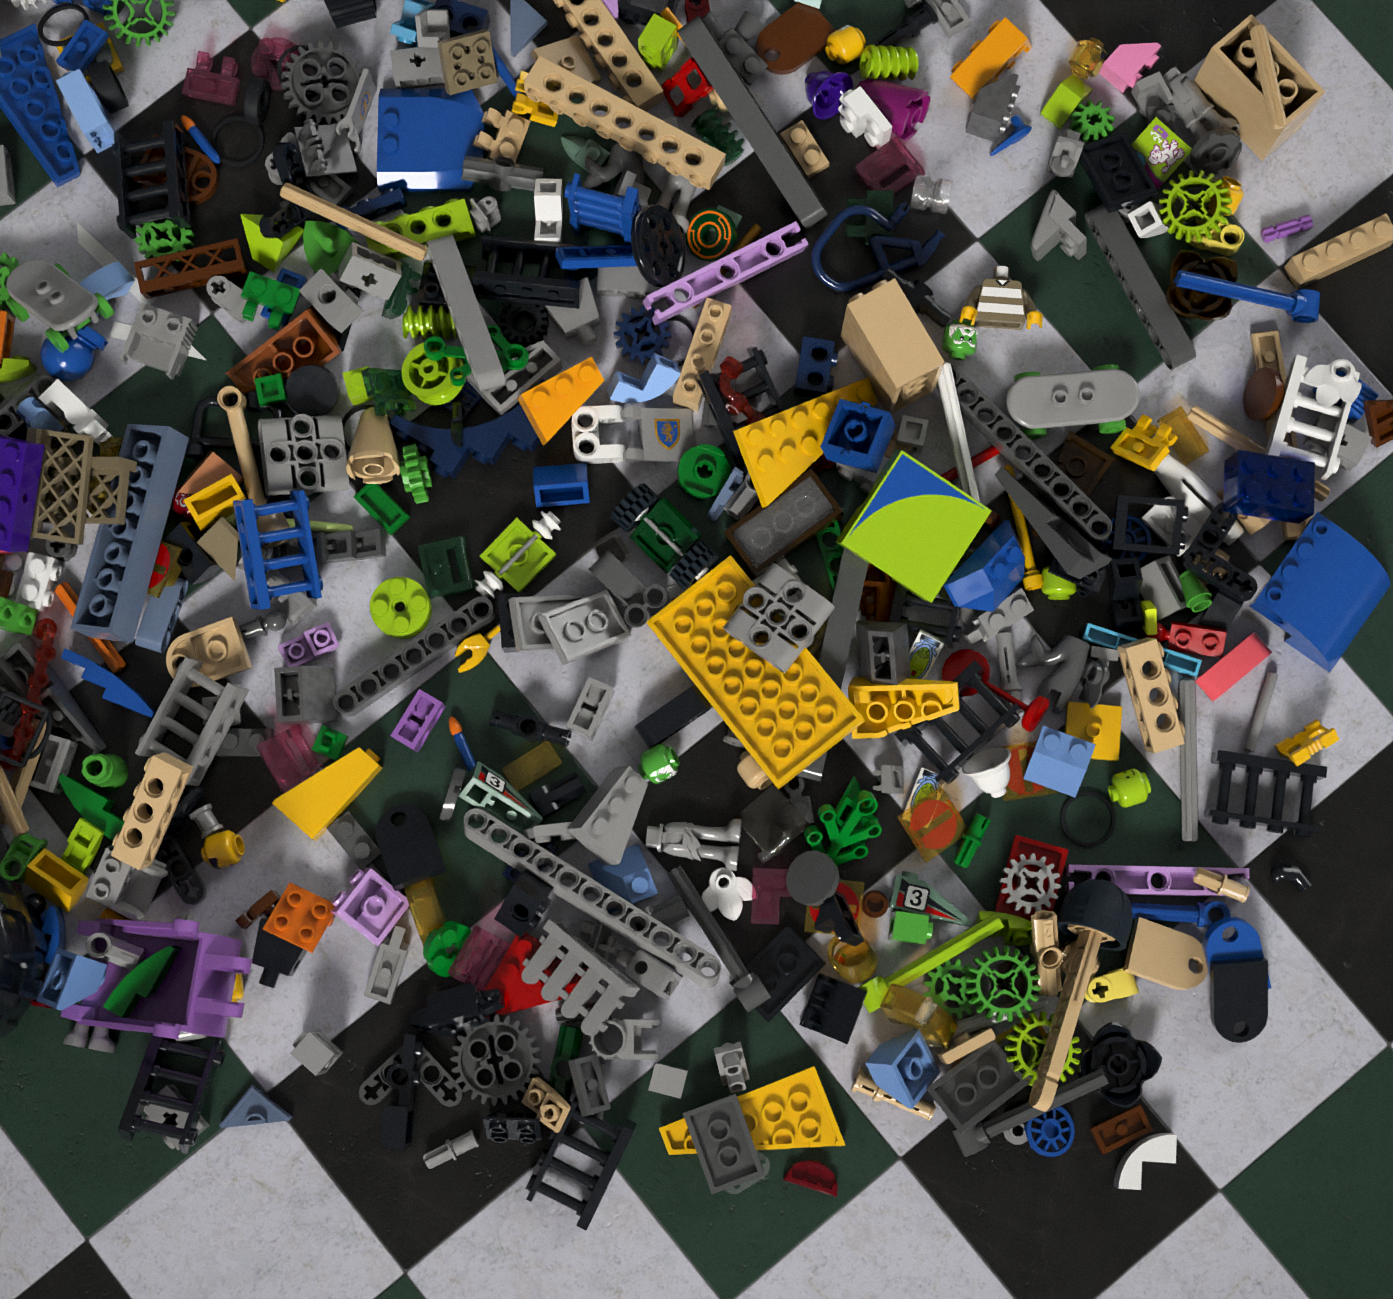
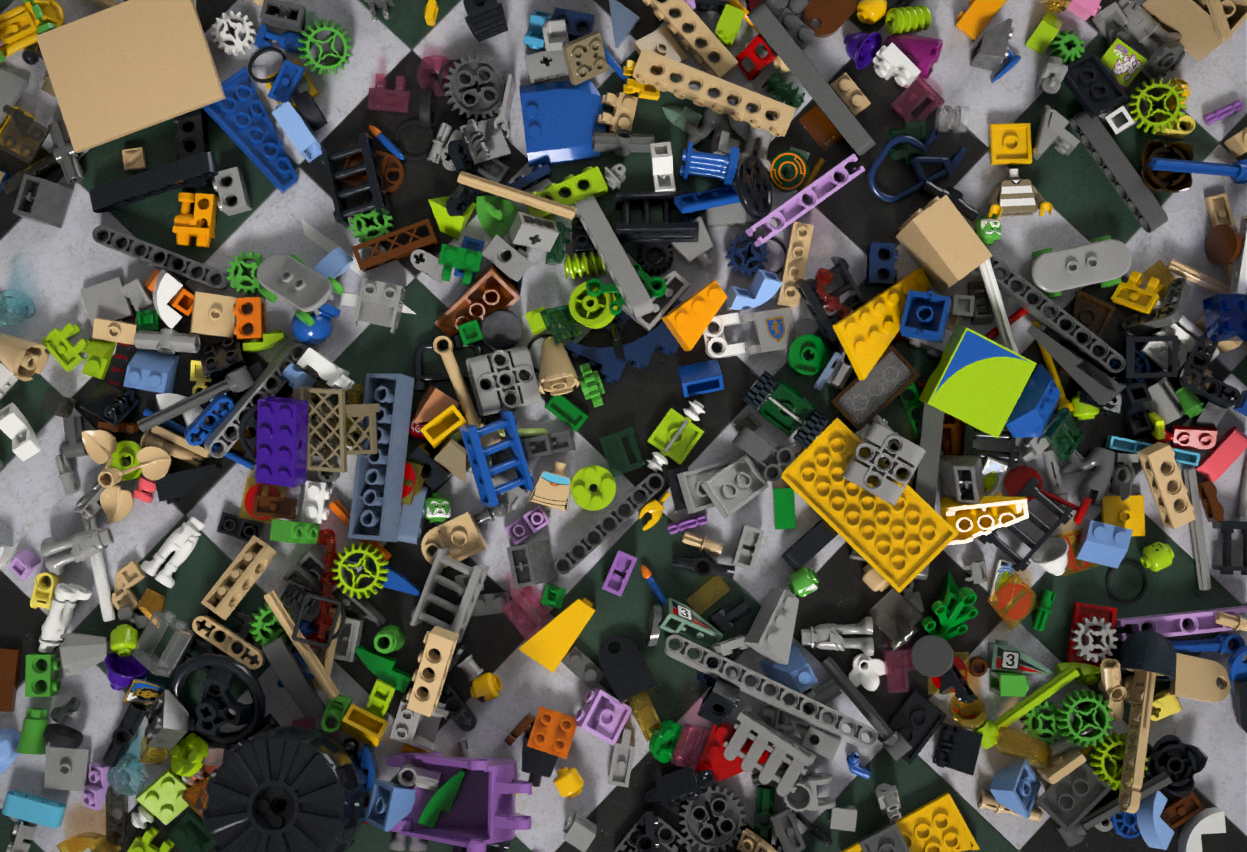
camera: 10 degrees left, 5 degrees up
(85, 663) = (364, 561): none -> lime gear
(194, 609) = (437, 508): none -> bright green head
(266, 147) = (439, 143): none -> light grey axle
(312, 987) = (568, 782): none -> yellow head
(348, 603) = (553, 488): none -> tan torso
(517, 670) = (687, 523): none -> medium lavender axle
(533, 697) = (702, 543): none -> tan axle
(632, 1096) = (815, 830): none -> black piece
(647, 666) = (784, 508): none -> green tile
(695, 1015) = (855, 765): none -> blue arm
(760, 187) = (820, 128): none -> reddish brown sticker
(936, 449) = (978, 318): none -> dark grey slope
(1003, 235) = (1010, 143): none -> yellow plate
(1018, 617) = (1059, 437): none -> clear green plate
(1078, 1144) = (1151, 826): none -> light blue brick
(1173, 473) = (1168, 314): none -> dark grey beam
(1207, 714) = (1211, 506): none -> reddish brown plate

